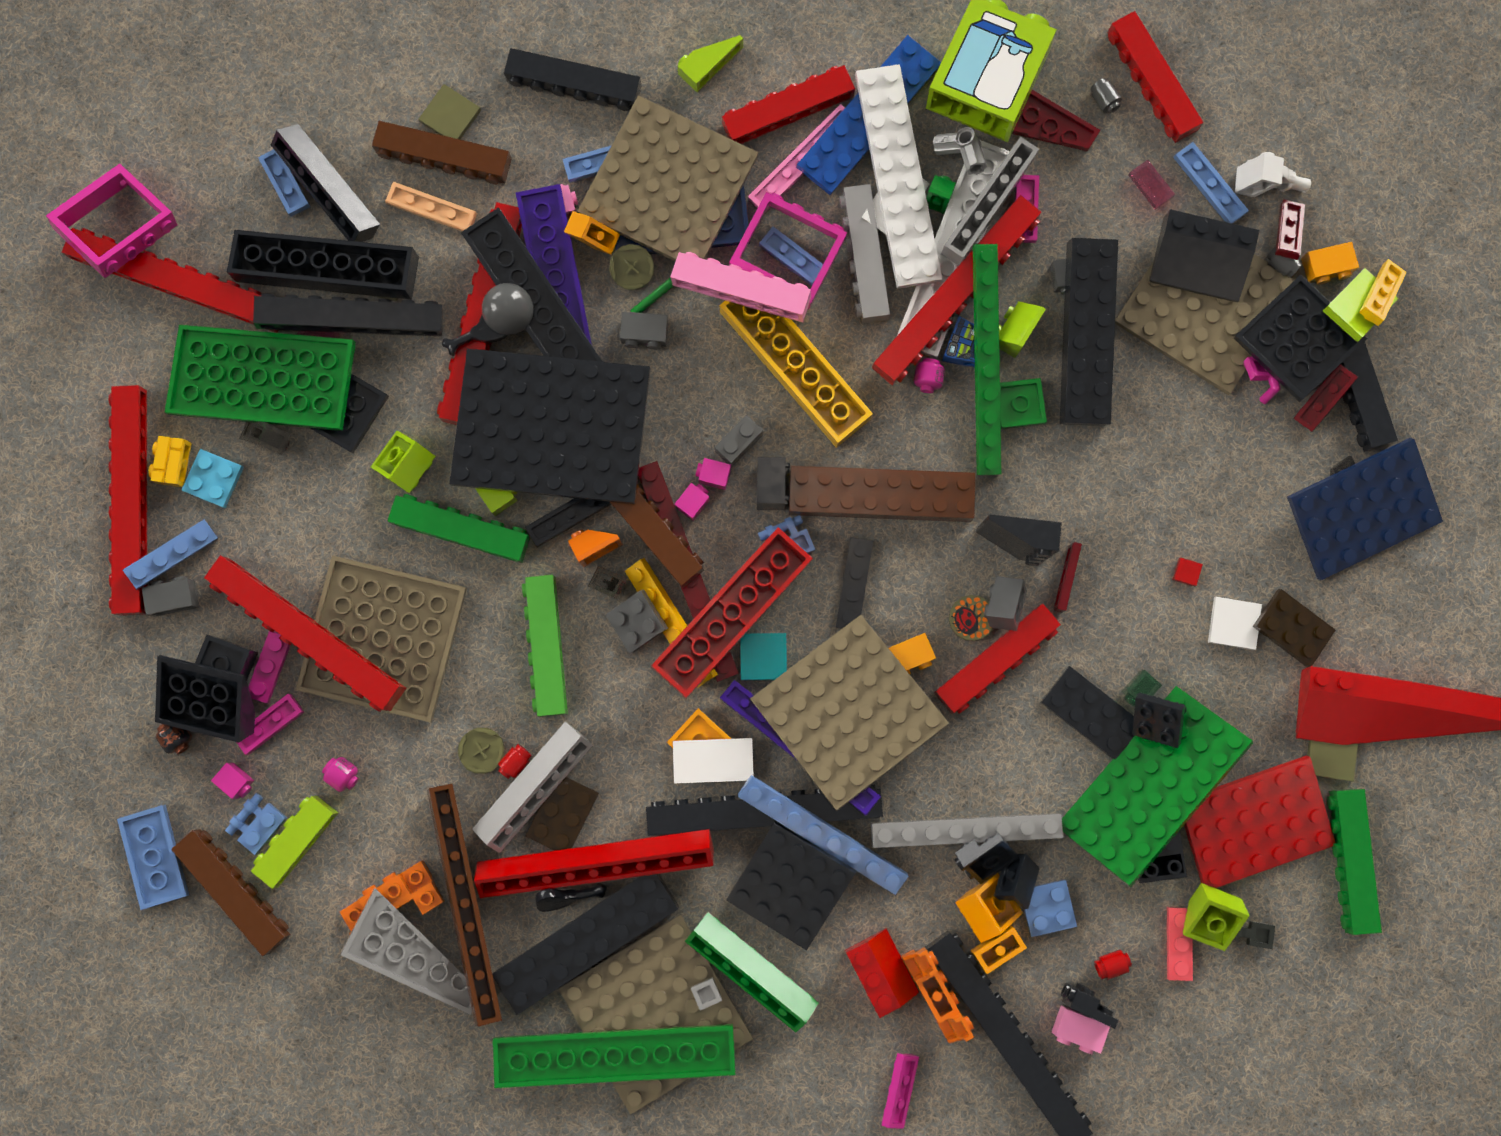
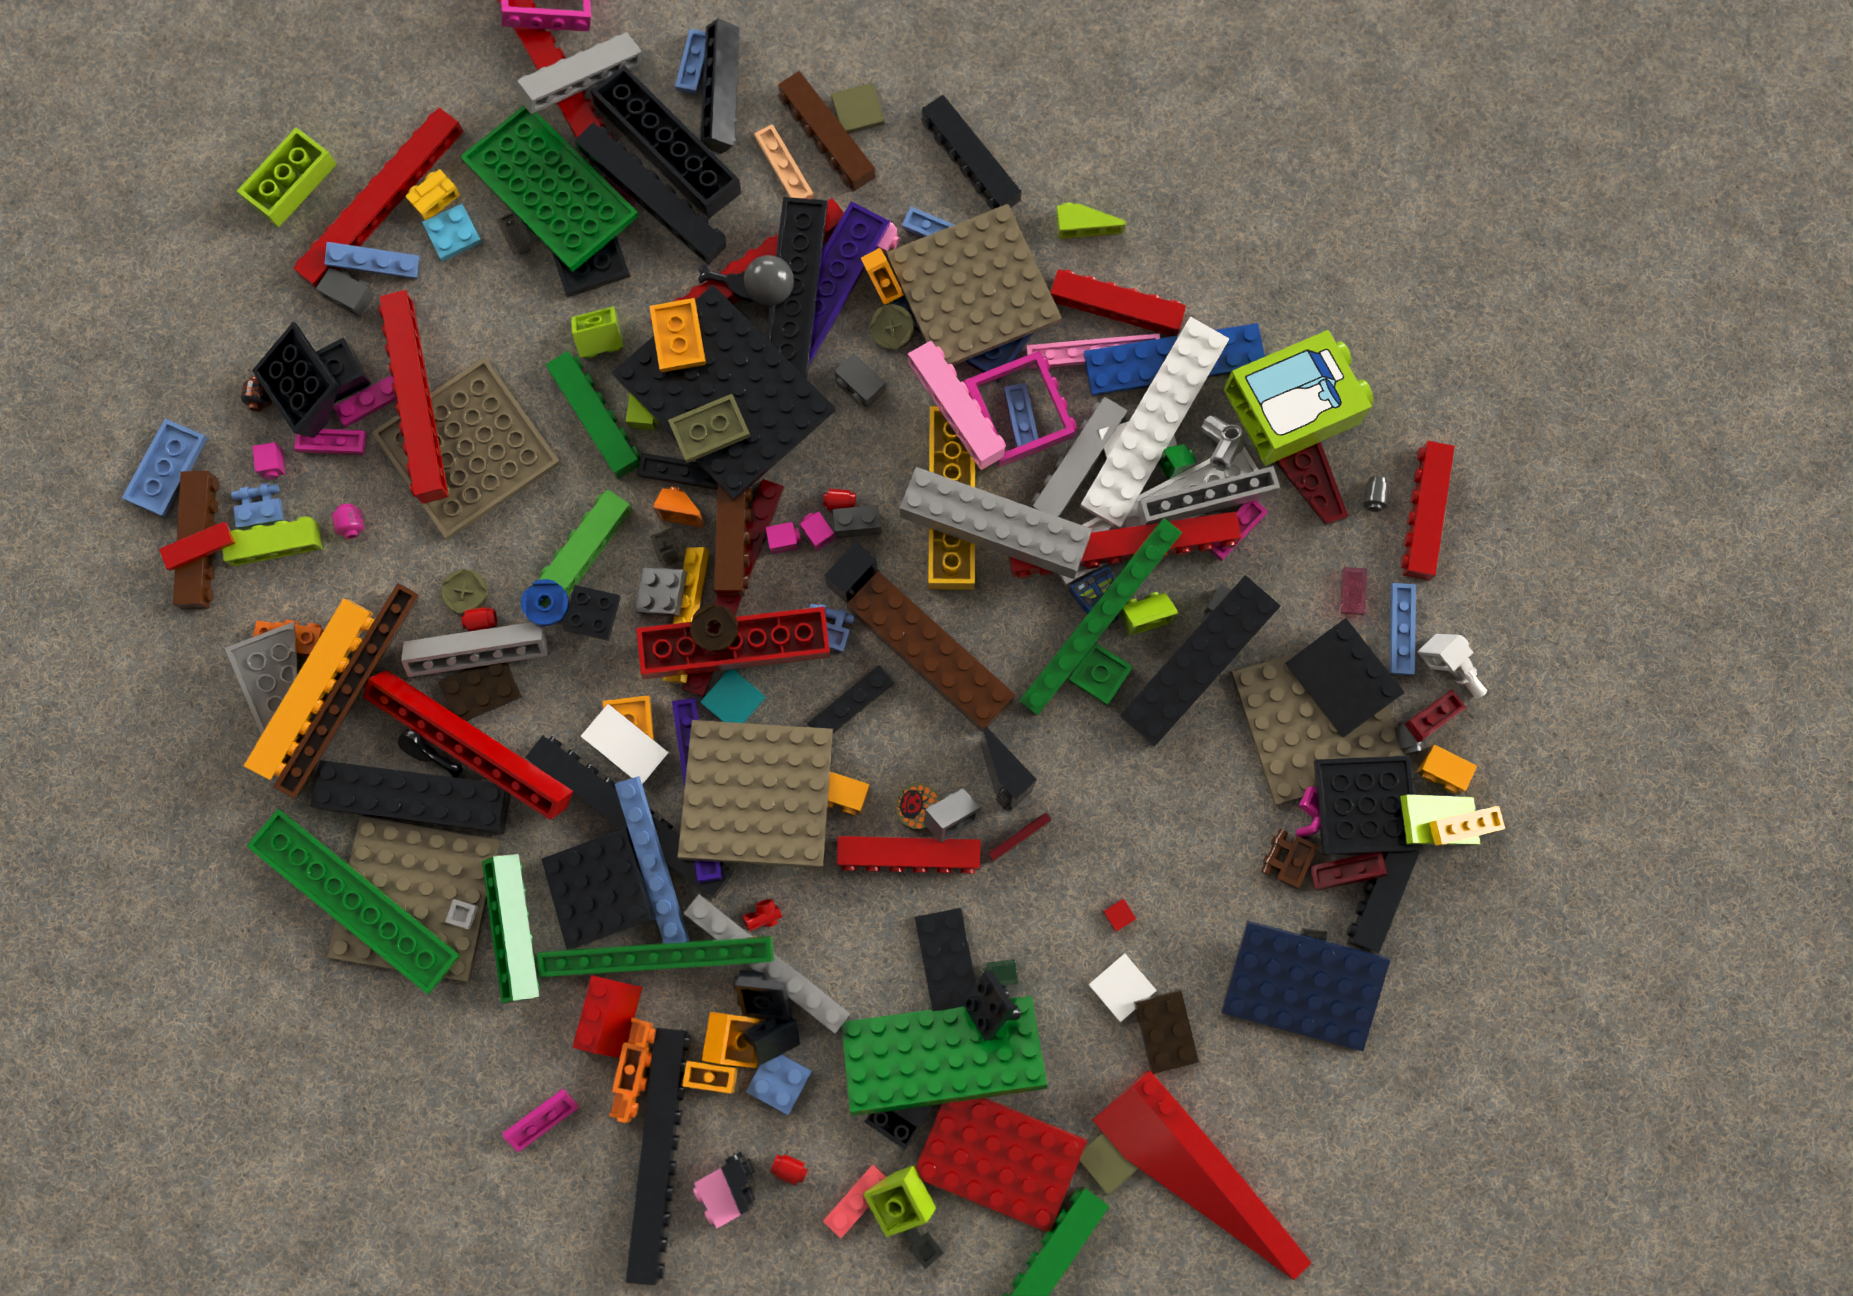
camera: 40 degrees right, 5 degrees down
(37, 545) = (287, 177): none -> lime brick
(202, 266) = (577, 72): none -> light grey brick
(240, 895) = (196, 546): none -> red tile
(437, 928) = (309, 689): none -> light orange brick
(478, 411) = (677, 335): none -> light orange plate
(559, 692) = (536, 593): none -> blue plate
(569, 463) = (709, 428): none -> olive plate
(600, 682) = (591, 612): none -> black plate
(651, 298) = (887, 363): green bar -> none
(710, 435) = (839, 499): none -> red brick
(717, 627) = (718, 615): none -> dark brown plate
(852, 353) = (995, 523): none -> light grey brick
(881, 897) = (656, 956): none -> green plate
(929, 375) = (1047, 593): dark pink head -> none
(932, 796) = (765, 914): none -> red plate
(1280, 424) = (1296, 861): none -> reddish brown plate

